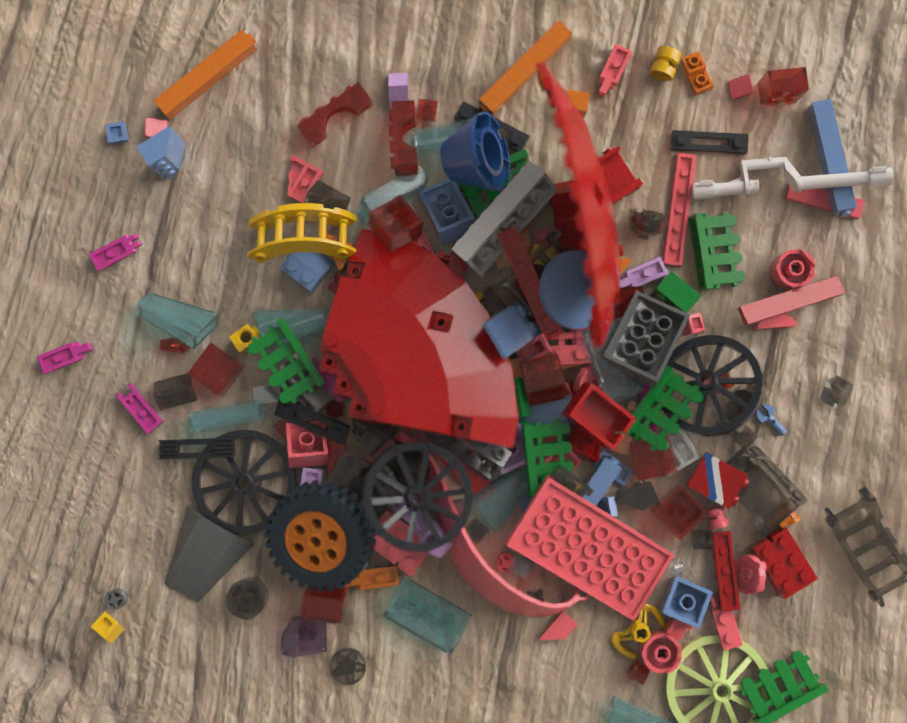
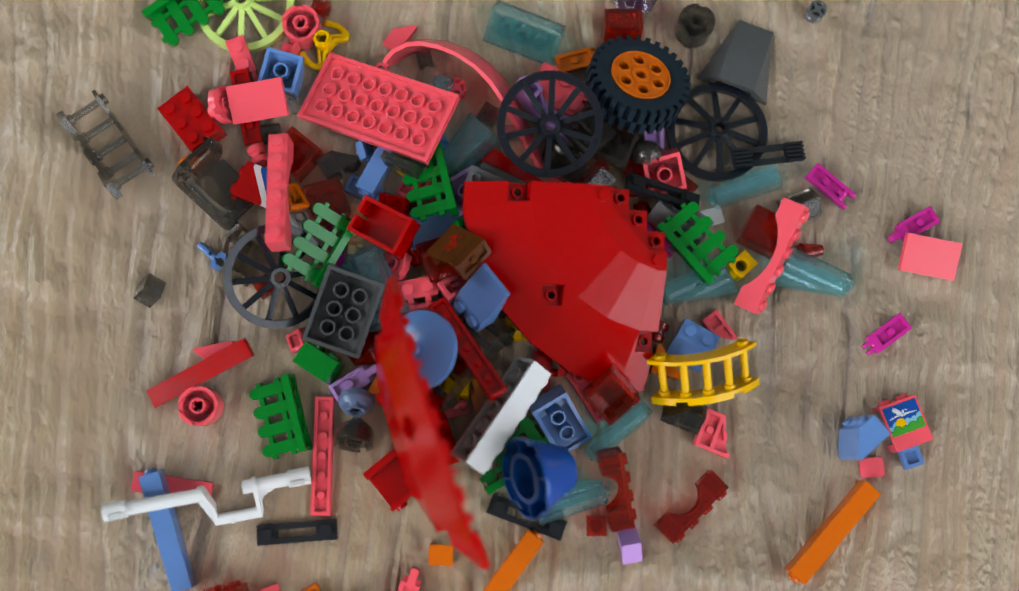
camera: 170 degrees right, 5 degrees down
(55, 322) = (929, 256): none -> coral tile
(117, 165) = (904, 421): none -> panel
(192, 369) = (789, 221): none -> coral arch
(279, 283) = (715, 323): none -> coral tile
(322, 462) = (646, 151): none -> clear smoke hair
(526, 376) = (460, 250): none -> reddish brown panel
(642, 252) = (356, 398): none -> sand blue piece
(686, 462) = (297, 200): none -> orange slope
(697, 495) = (277, 225): none -> coral arch
(714, 572) = (257, 100): none -> coral tile

